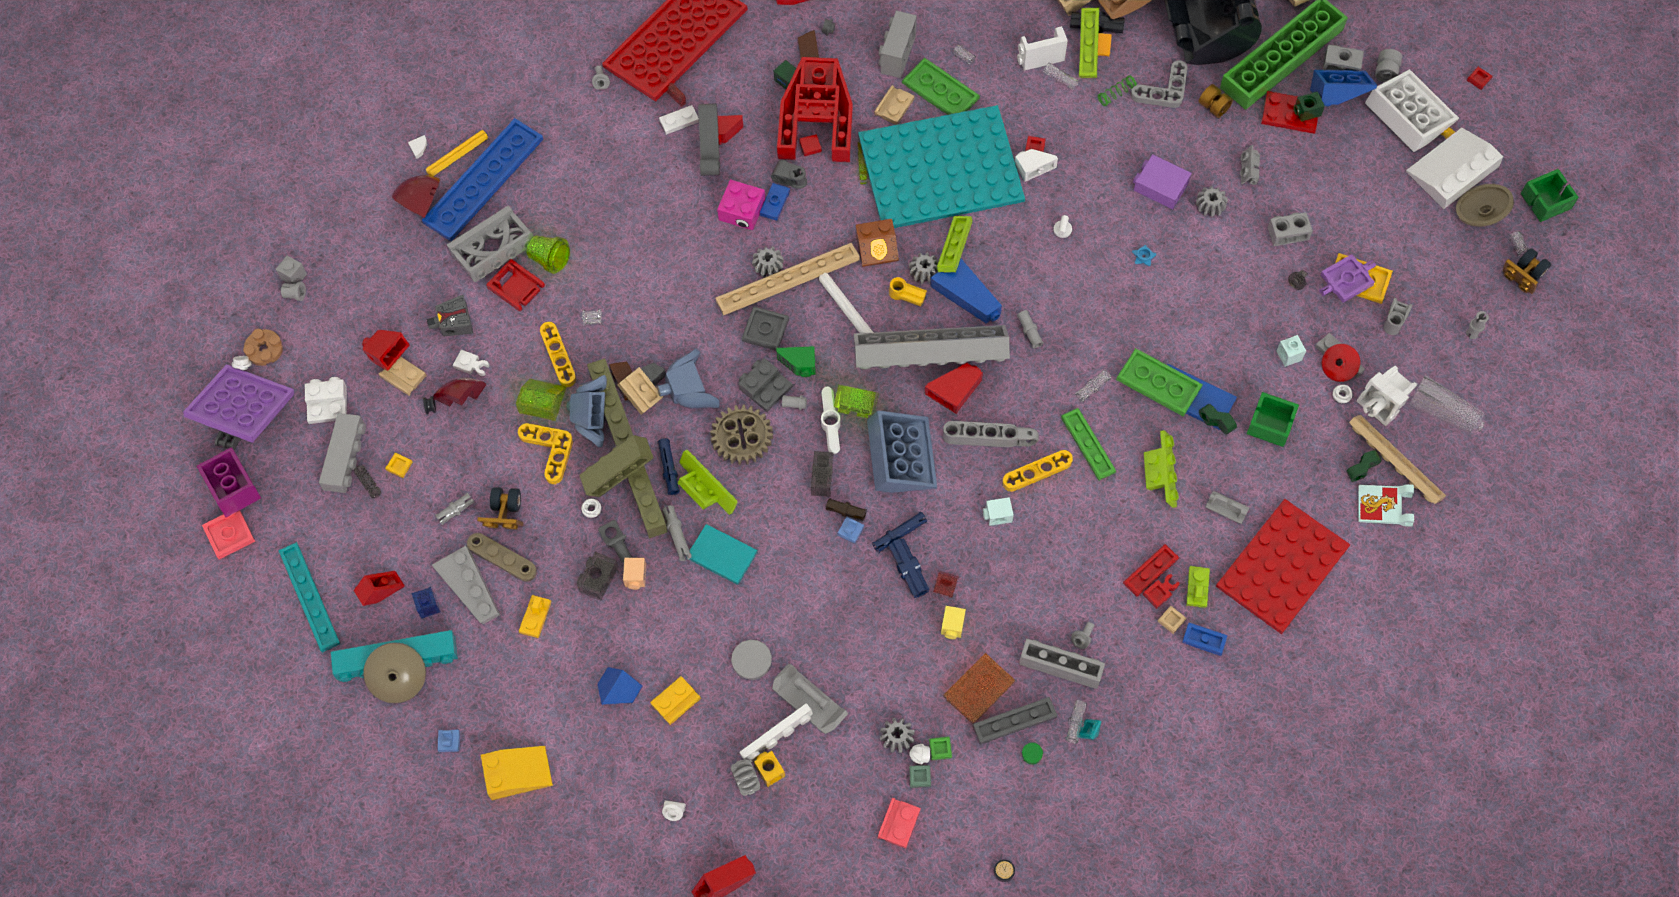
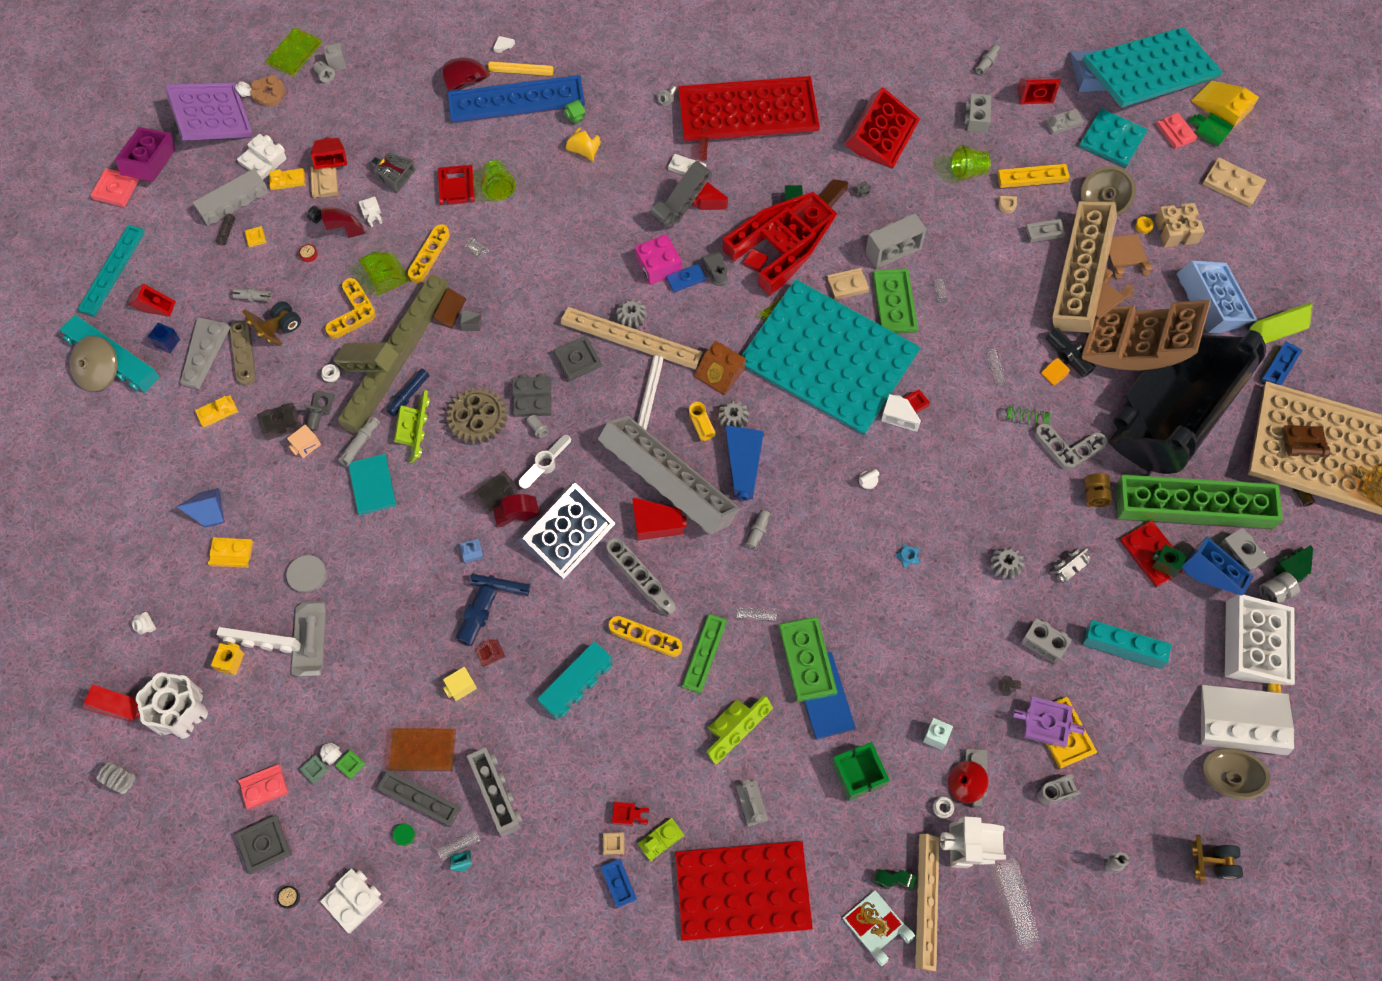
camera: 45 degrees right, 0 degrees up
(245, 298) = (294, 52): none -> clear neon green plate
(369, 399) = (286, 179): none -> yellow hinge
(448, 740) = (76, 439): medium blue tile -> none
(459, 439) = (308, 253): none -> tile
(488, 229) = (461, 132): light grey fence -> none
(515, 771) = (85, 498): yellow slope -> none
(544, 149) = (575, 111): none -> bright green plate
(582, 168) = (583, 145): none -> yellow hair
(587, 409) = (395, 307): sand blue torso -> none
(640, 390) = (446, 323): tan plate -> none
(685, 384) = (481, 345): sand blue torso -> none
(745, 777) = (203, 648): light grey gear -> none
(778, 850) = (179, 718): none -> white piece
(798, 360) = (573, 400): green slope -> none
(846, 509) = (484, 533): dark brown pin -> none
(850, 471) = (518, 507): none -> dark red brick
(855, 400) = (575, 463): clear neon green slope -> none
(905, 737) = (328, 731): light grey gear -> none
(947, 856) = (263, 844): none -> dark grey plate
(954, 244) = (772, 418): lime tile -> none
(998, 511) = (581, 636): light aqua brick -> none
(1027, 543) = (575, 681): none -> teal brick
(1042, 52) = (999, 337): white panel -> none
(1049, 826) = (352, 900): none -> white plate
(1081, 638) = (533, 789): light grey plate -> none
(1089, 43) = (1044, 361): lime tile -> none
(1151, 570) = (641, 791): red tile -> none
(1161, 181) = (984, 513): medium lavender brick -> none
(1214, 418) = (817, 729): dark green piece -> none
(1338, 185) = (1127, 644): none -> teal brick
(1382, 39) = (1298, 565): none -> dark green slope
(1479, 78) = (1354, 670): red tile -> none
(1518, 242) = (1235, 832): clear pin -> none
(1545, 195) = (1304, 817): green piece -> none

